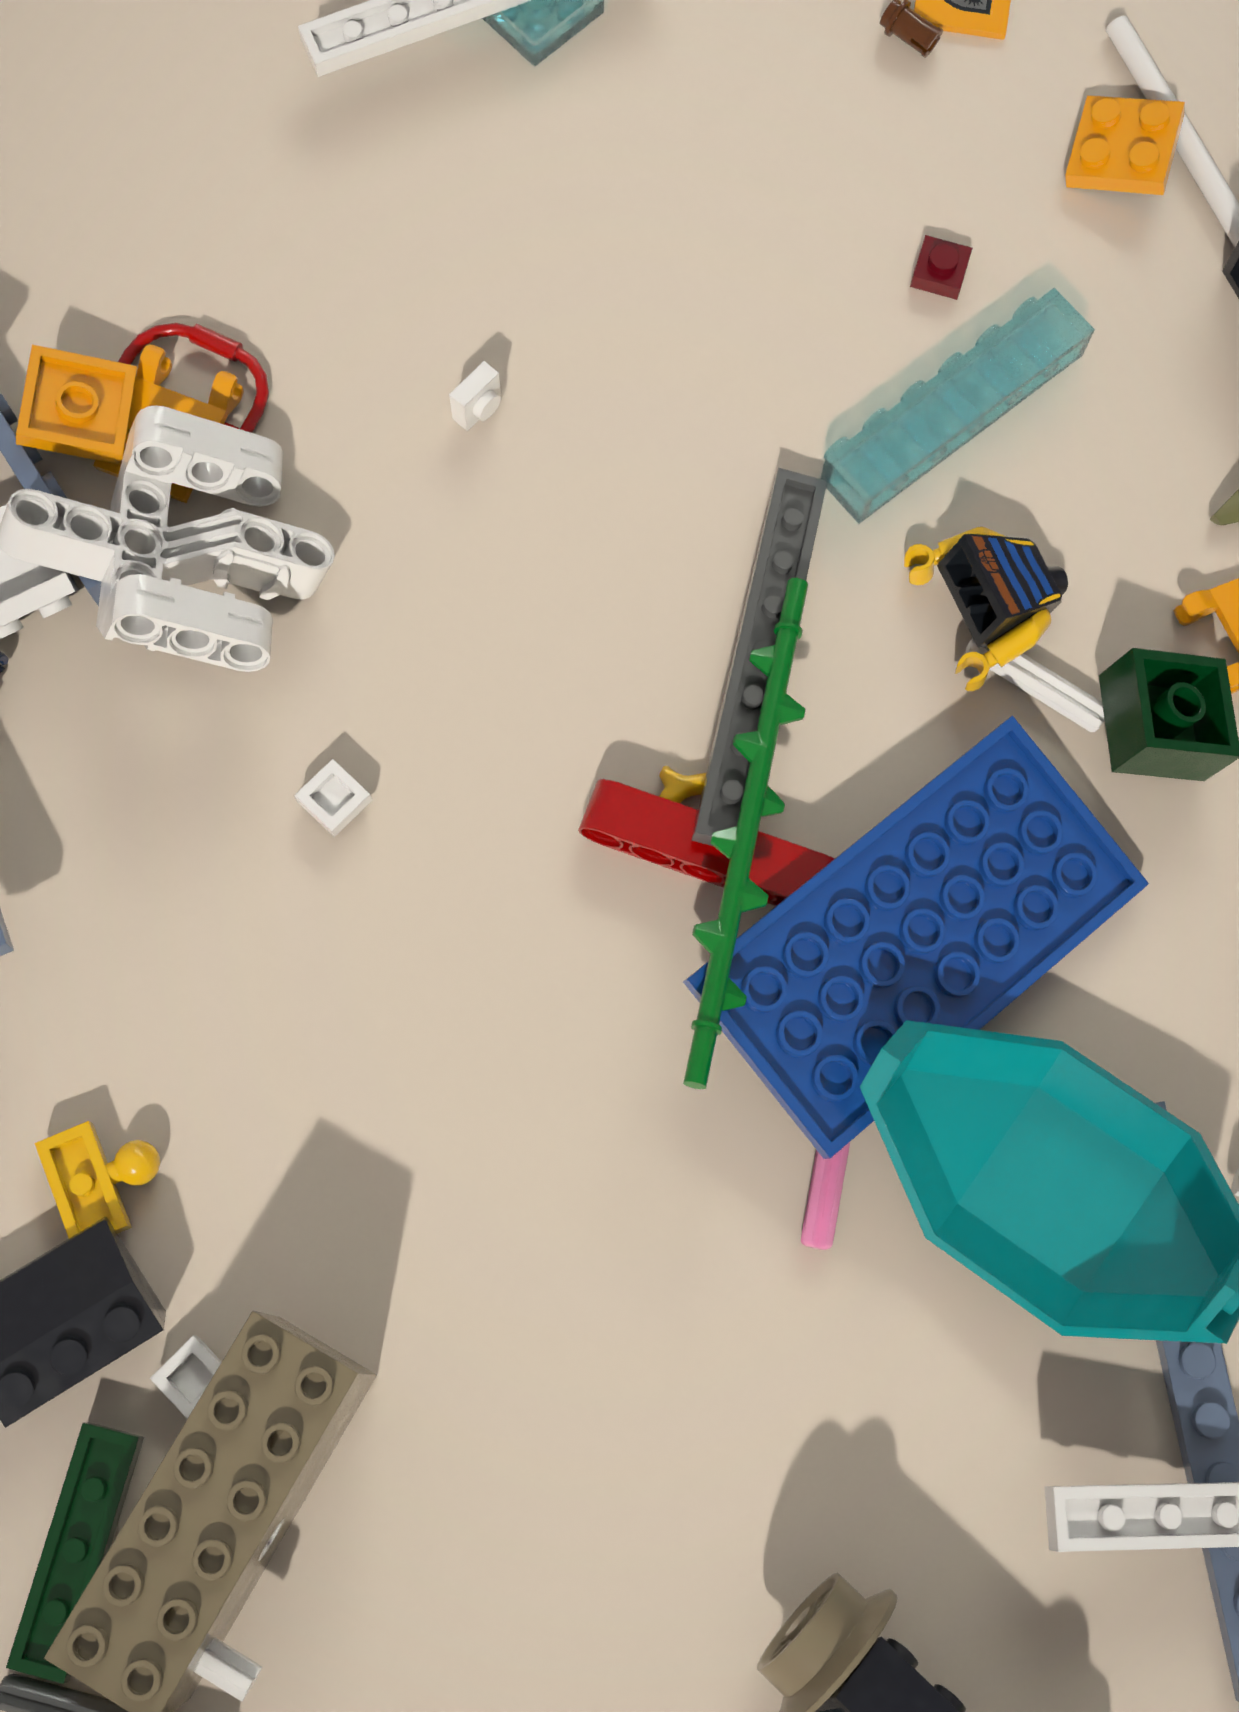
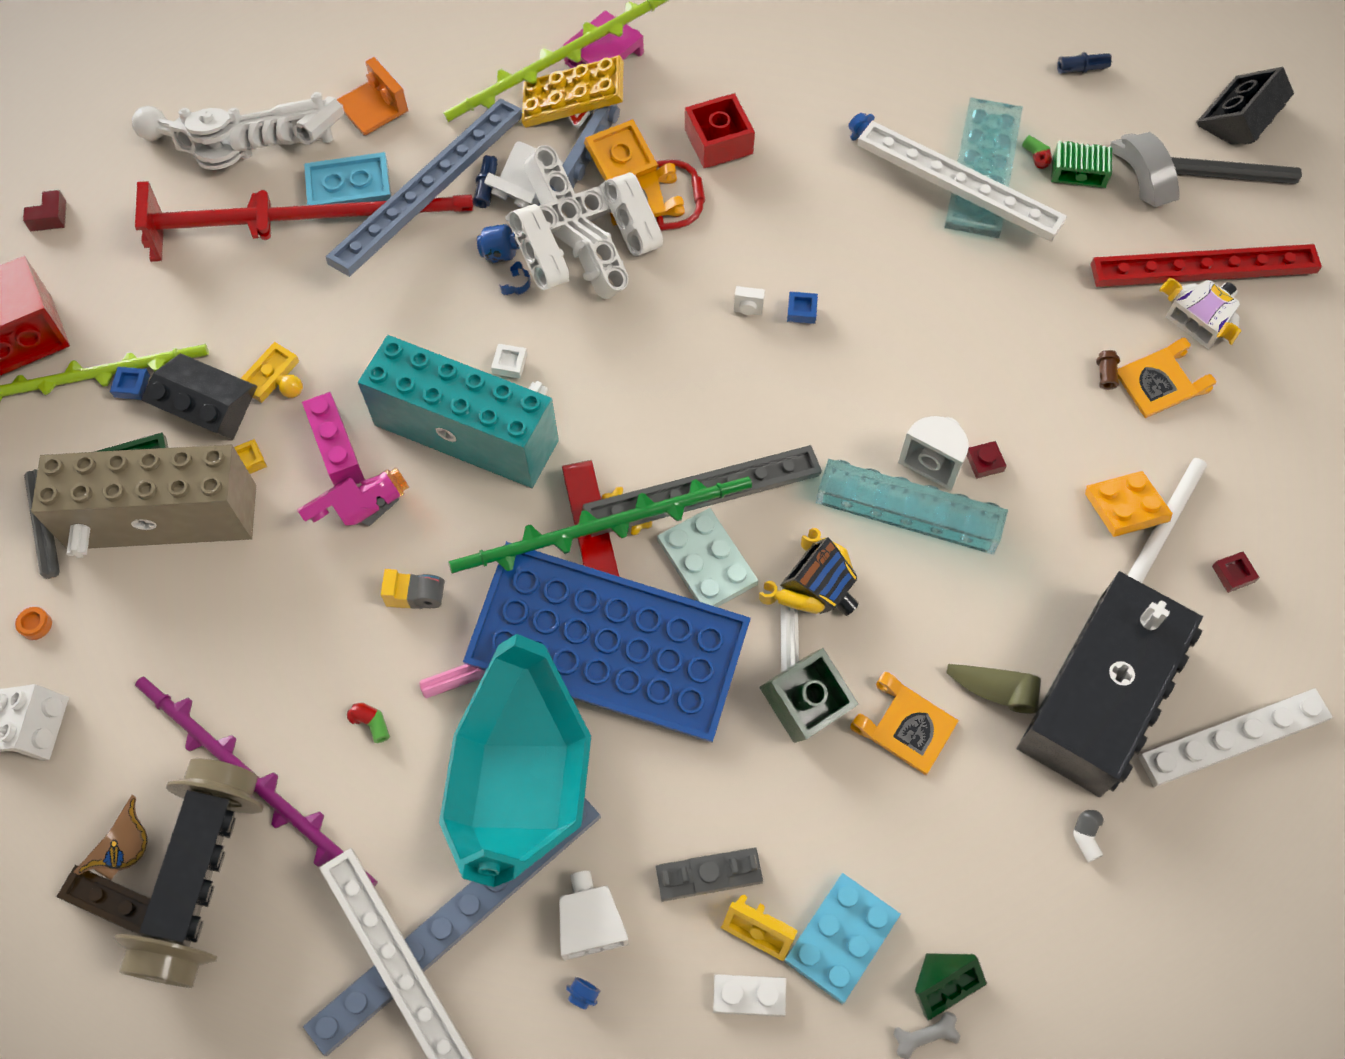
camera: 60 degrees right, 10 degrees down
(101, 687) = (497, 243): none -> blue head
(140, 241) = (719, 130): none -> red brick
(162, 696) = (506, 290): none -> blue piece
(221, 1305) = (251, 456): none -> yellow tile
(280, 50) = (859, 124): none -> blue plate
(296, 1147) = (332, 439): none -> dark pink brick
(401, 914) = (460, 410): none -> teal piece
(432, 1176) = (359, 503): none -> dark pink plate
(537, 334) = (802, 307): none -> blue plate
(644, 1168) = (411, 590): none -> leg
(731, 1608) = (265, 787): none -> magenta plant
(814, 1348) = (372, 717): none -> arm
(863, 723) = (707, 559): none -> light aqua plate
(911, 311) = (935, 449): none -> white brick

